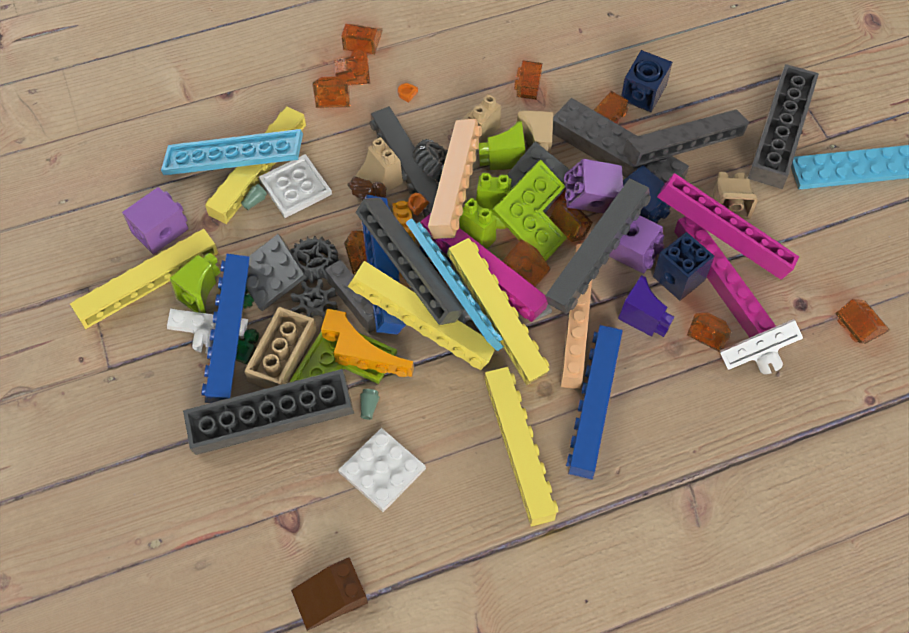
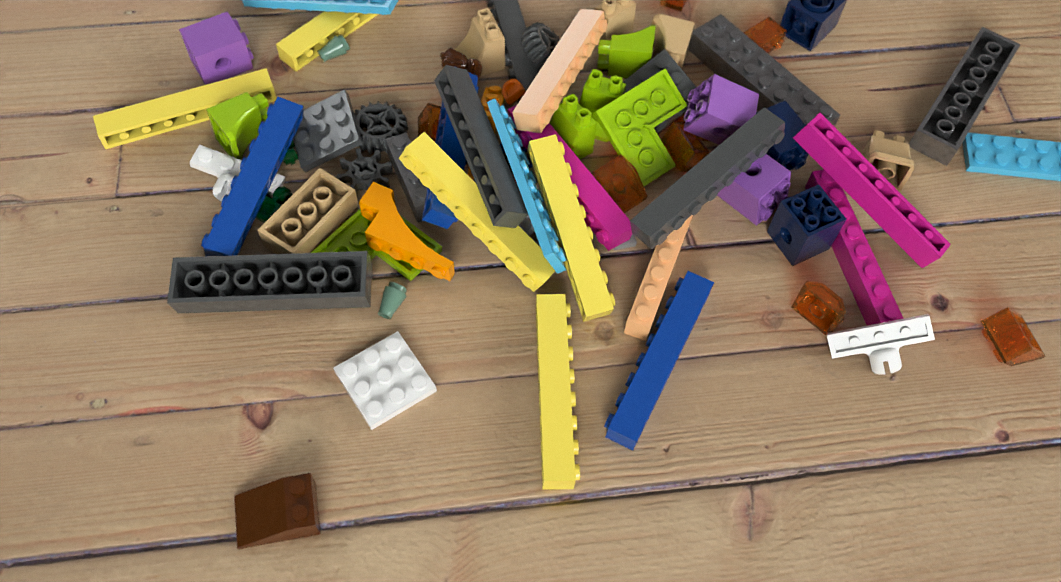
camera: 10 degrees right, 0 degrees up
(295, 186) = (383, 46): white plate -> none
(645, 311) = (746, 266): dark purple hips -> none
(685, 137) = (843, 82): flat silver brick -> none

